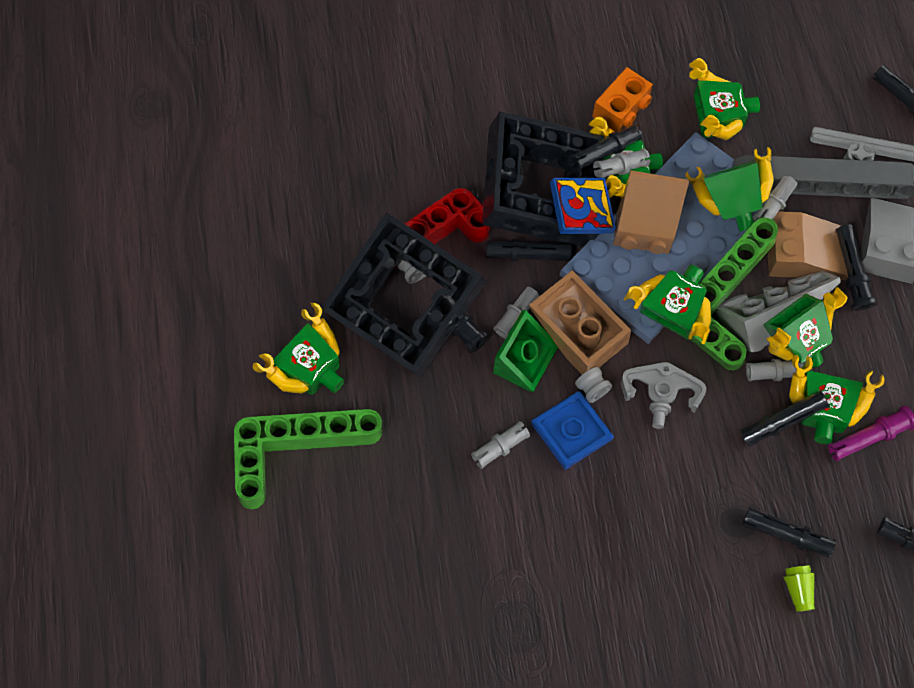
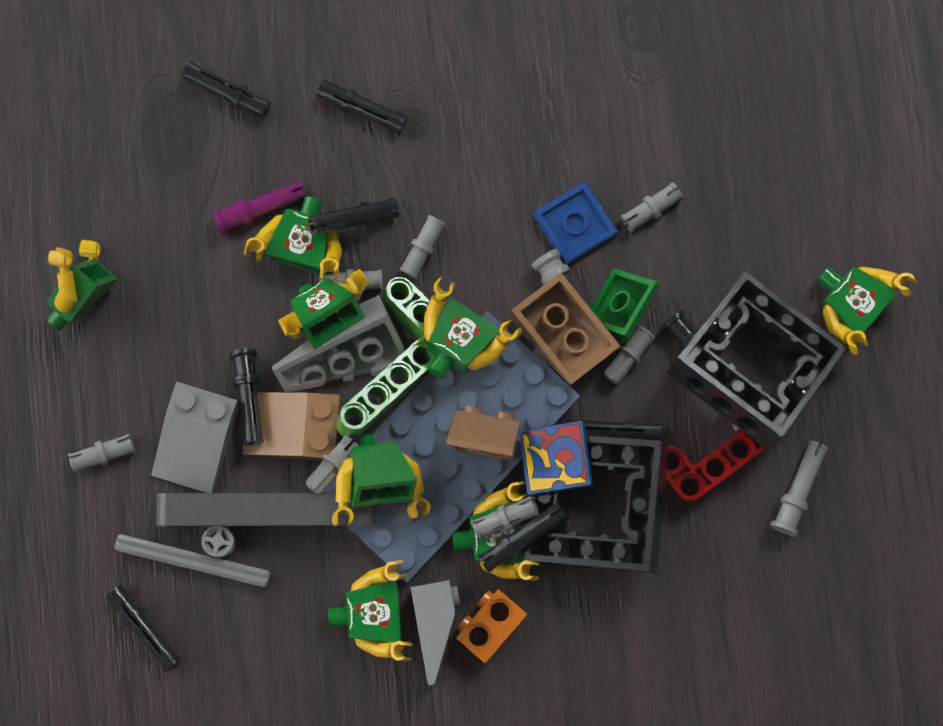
camera: 175 degrees left, 15 degrees up
(293, 440) = (867, 216): bright green beam -> none
(366, 198) = (795, 501): none -> light grey pin
(663, 384) = (474, 269): light grey piece -> none
(675, 96) = (434, 617): none -> light grey slope
(714, 402) = (422, 247): none -> light grey pin
(801, 587) = (358, 53): lime cone -> none

